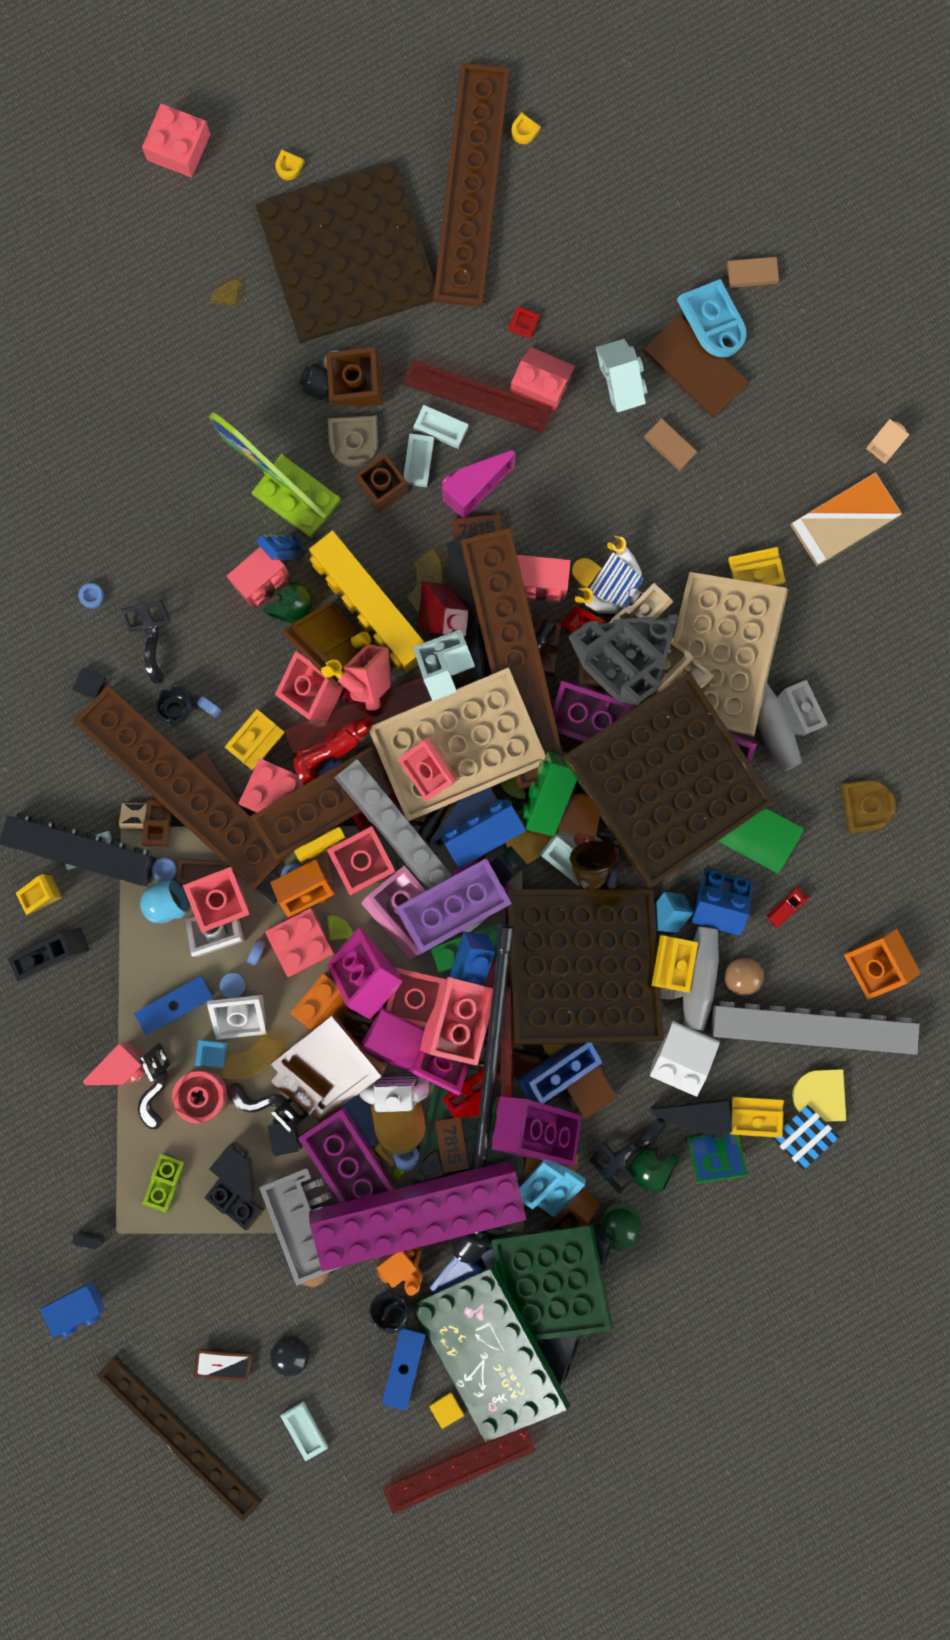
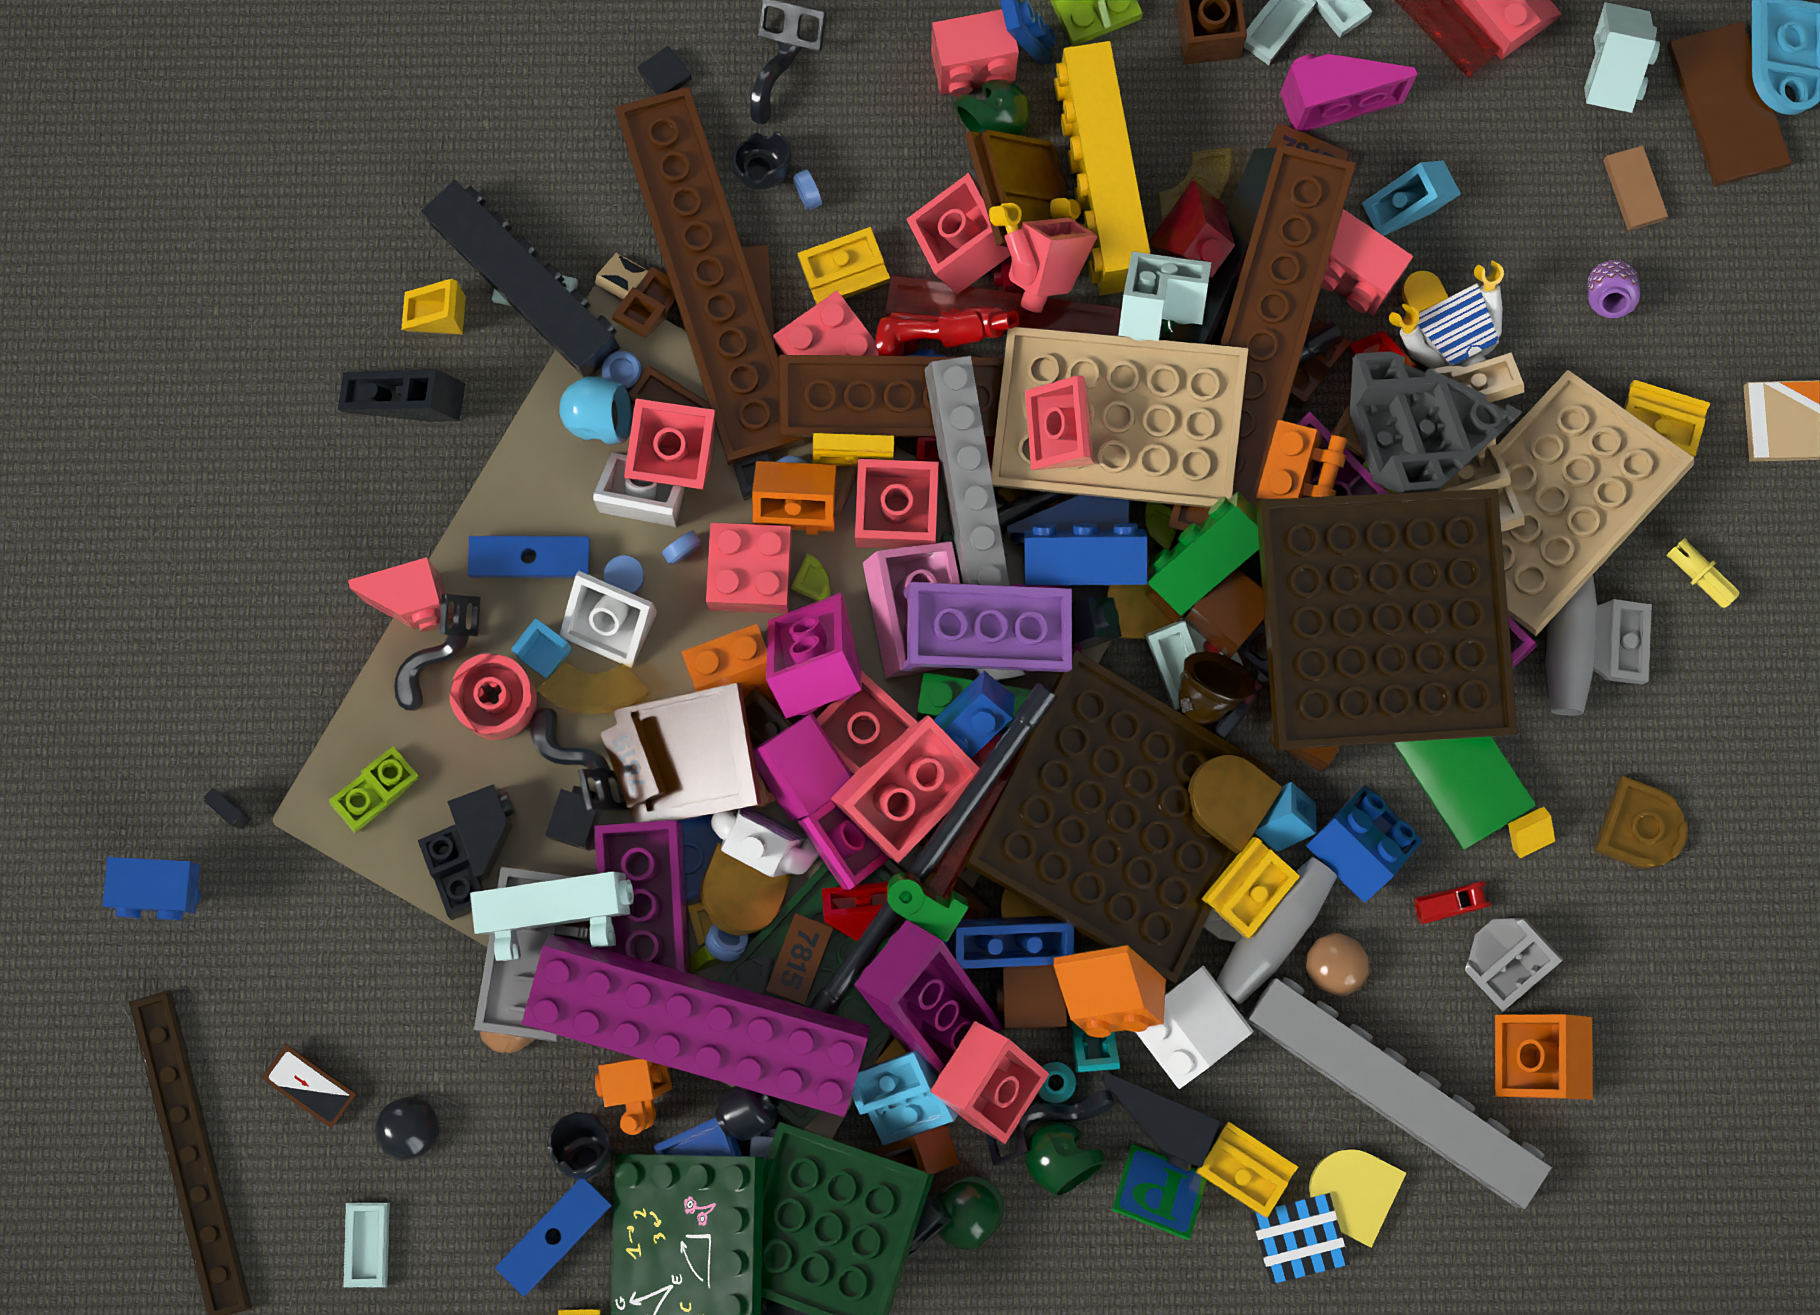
camera: 25 degrees right, 5 degrees down
(299, 1195) = (550, 904): none -> light aqua brick
(505, 1082) = (925, 907): none -> green leg
(549, 521) = (1411, 197): none -> medium azure slope
(568, 717) = (1293, 460): none -> orange brick
(593, 1153) = (989, 1082): none -> coral brick
(625, 1121) = (1068, 1087): none -> teal plate
(631, 1067) = (1111, 991): none -> orange slope
(635, 1094) = (1093, 1052): none -> teal slope
(637, 921) = (1231, 799): none -> pearl gold tile
(690, 512) = (1613, 289): none -> medium lavender head
(809, 844) = (1531, 832): none -> yellow tile
(826, 645) = (1703, 573): none -> light yellow axle
(835, 921) = (1509, 959): none -> light grey slope

